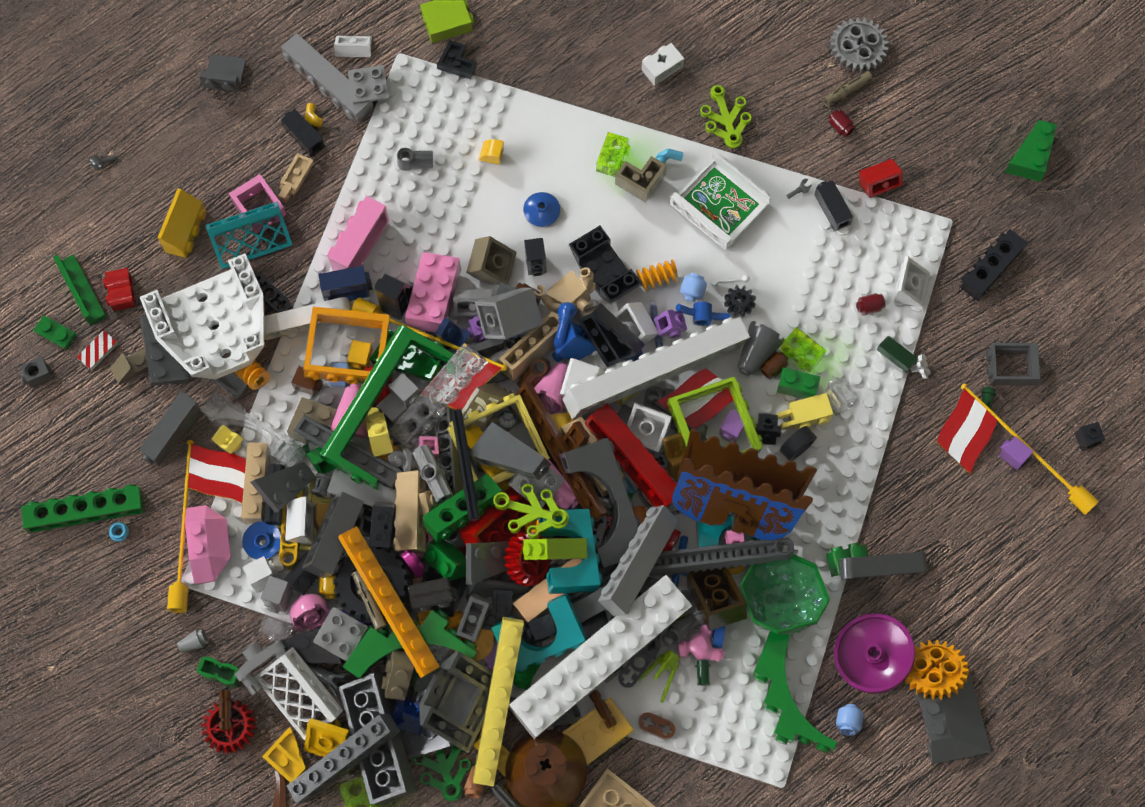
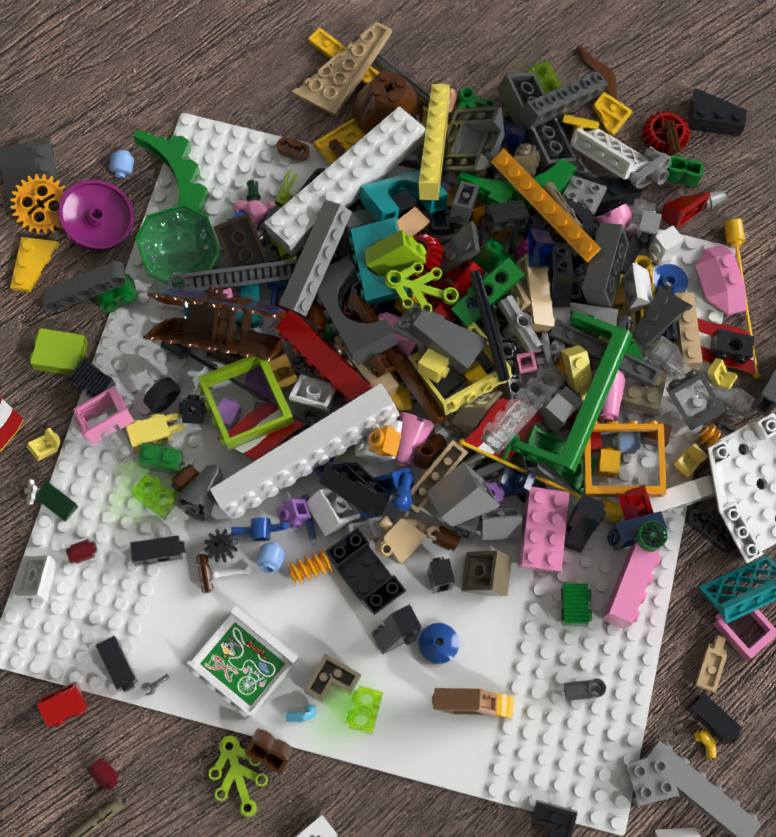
camera: 170 degrees right, 0 degrees up
(170, 745) = (715, 115): none -> black wedge
(220, 471) = (740, 342): none -> black brick
(228, 625) = (684, 209): none -> red slope
(259, 391) = (706, 414): none -> dark grey window
(280, 353) = (690, 460): none -> light yellow bracket
(335, 264) = (651, 536): none -> green wheel
(343, 301) = (635, 503): none -> red plate
(401, 552) = (539, 248): none -> clear blue slope
(412, 229) = (575, 604): none -> green brick
(524, 146) = (464, 701): none -> medium nougat window
(525, 433) = (433, 365): none -> light yellow brick
(577, 211) = (399, 628): none -> black wedge
(579, 365) = (384, 441): none -> light orange brick
(699, 128) = (270, 751): none -> reddish brown brick
(755, 279) = (204, 573): none -> reddish brown axle
(799, 300) = (157, 550): none -> black brick
(838, 431) = (98, 405): none -> bright pink window
(870, 467) = (90, 379): none -> black brick
(905, 504) = (57, 351): none -> lime brick
(913, 410) = (44, 445): none -> light yellow bracket
(942, 610) = (30, 261): none -> yellow wing

